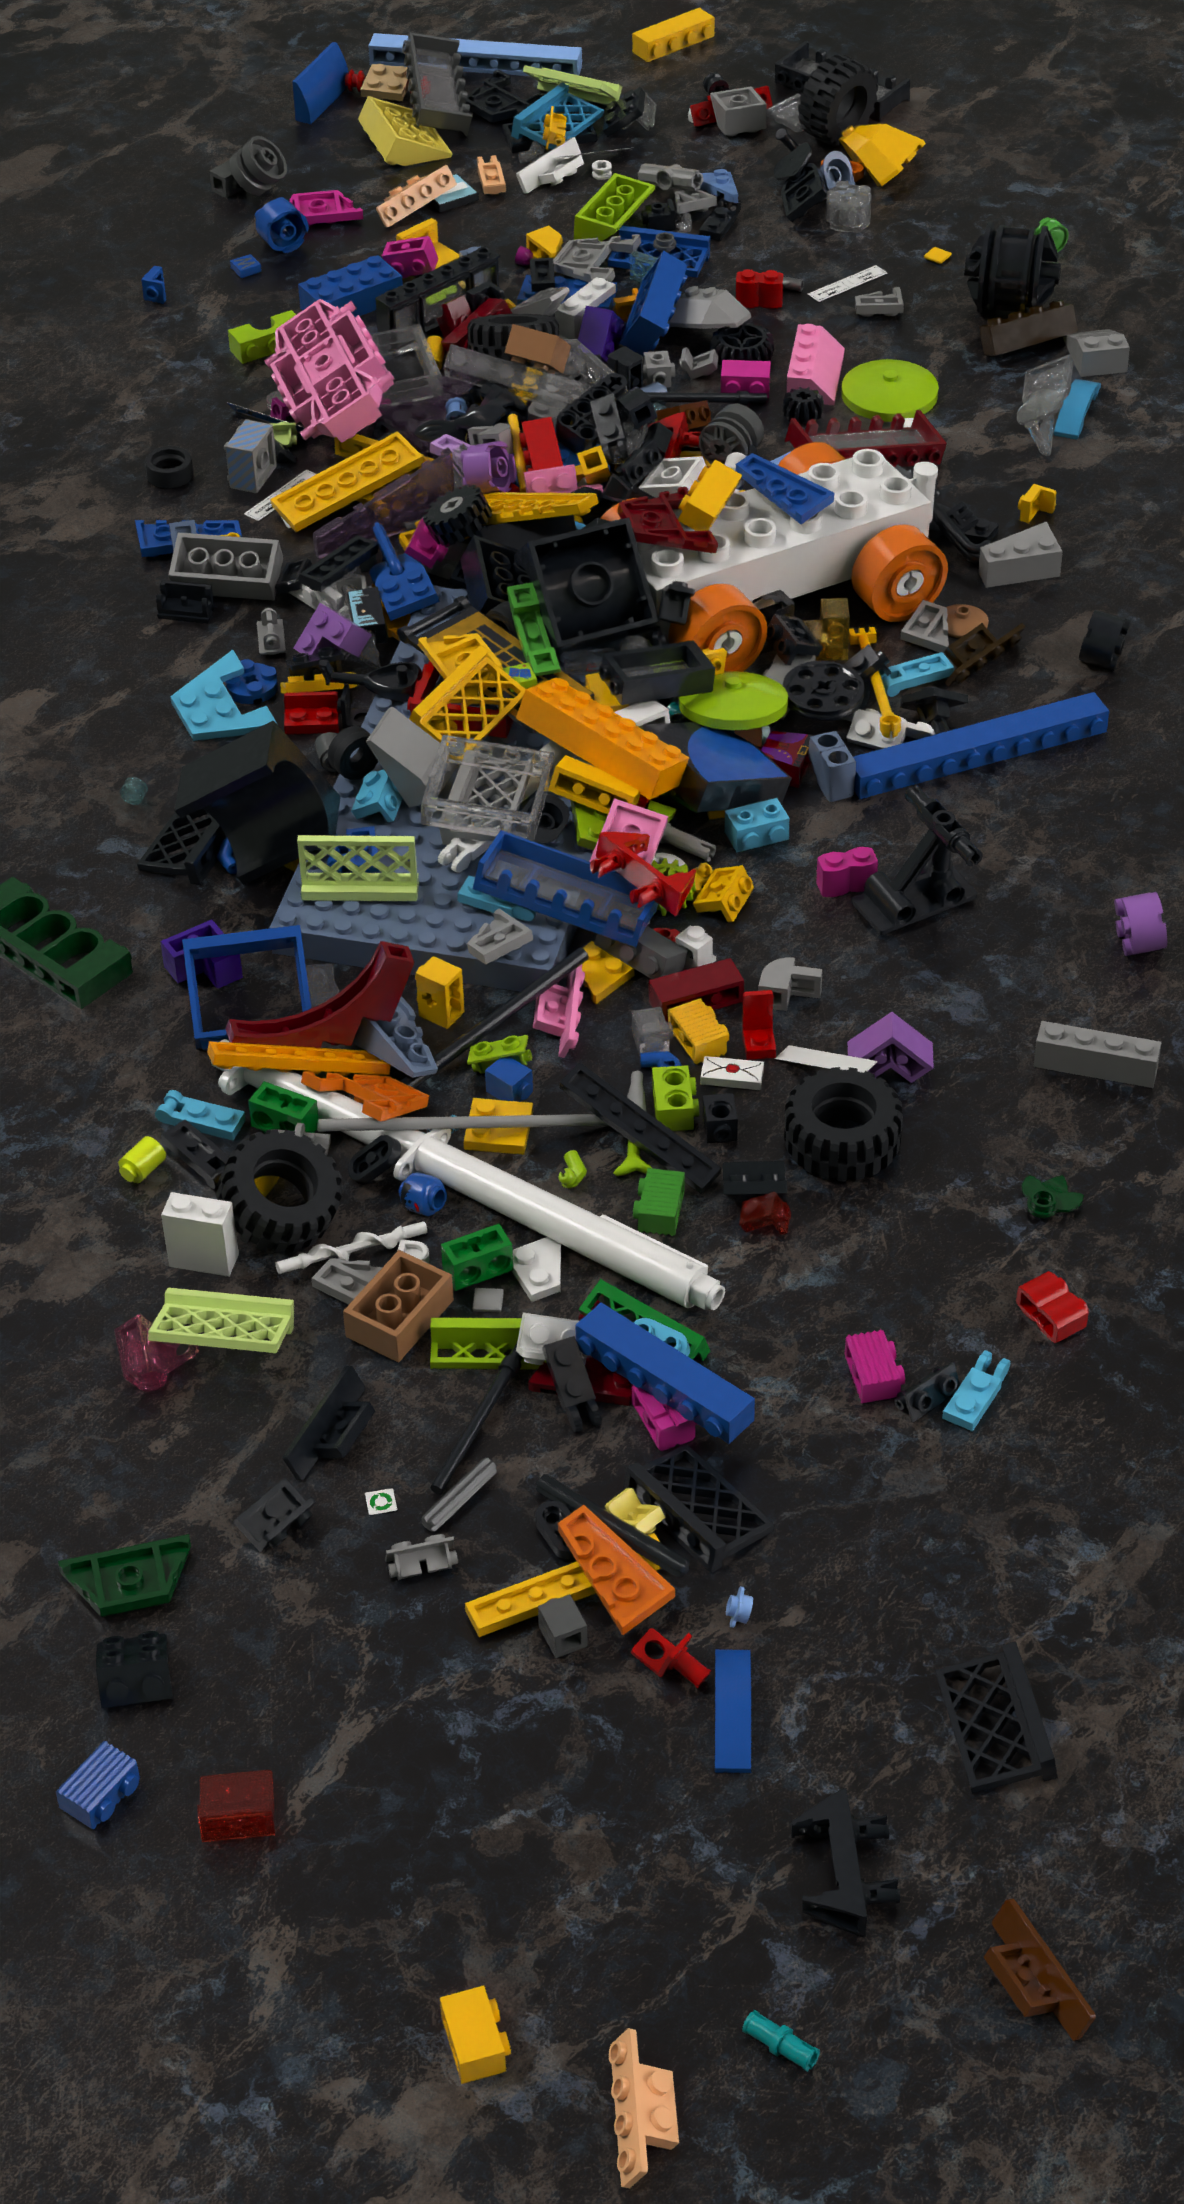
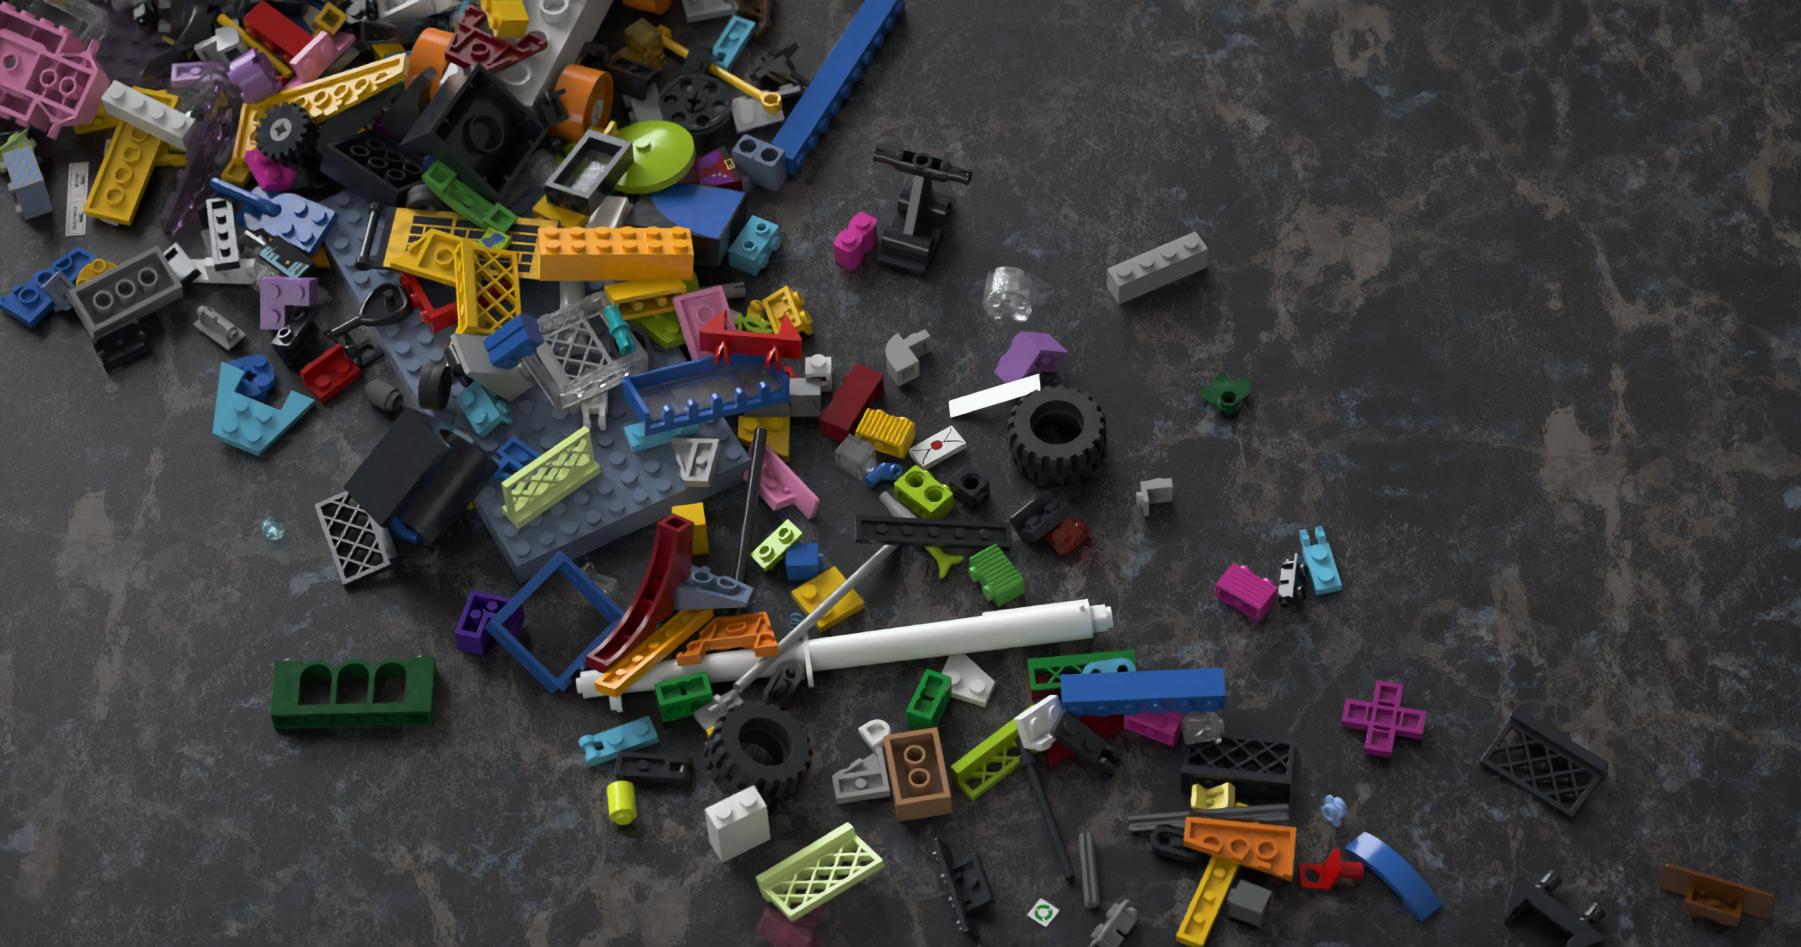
camera: 40 degrees left, 10 degrees up
(298, 684) = (312, 344): yellow plate -> none
(361, 1241) = (833, 753): white piece -> none
(378, 448) = (149, 115): none -> white brick
(422, 1194) = (838, 685): blue head -> none
(429, 738) = (513, 341): none -> blue brick
(453, 408) = (147, 36): medium blue bush -> none
(488, 1300) = (957, 727): light grey piece -> none
(529, 786) = (619, 329): none -> teal pin
(575, 1172) = (916, 595): lime arm -> none
(691, 1444) = (1202, 727): none -> clear bracket
(758, 1025) = (923, 406): red bracket -> none
(880, 1228) = (1154, 491): none -> light grey bracket
(880, 1564) = (1383, 719): none -> magenta plate
(931, 989) = (1009, 294): none -> clear brick
(1052, 1306) = (1308, 469): red brick -> none
(1140, 923) = (1091, 148): medium lavender brick -> none

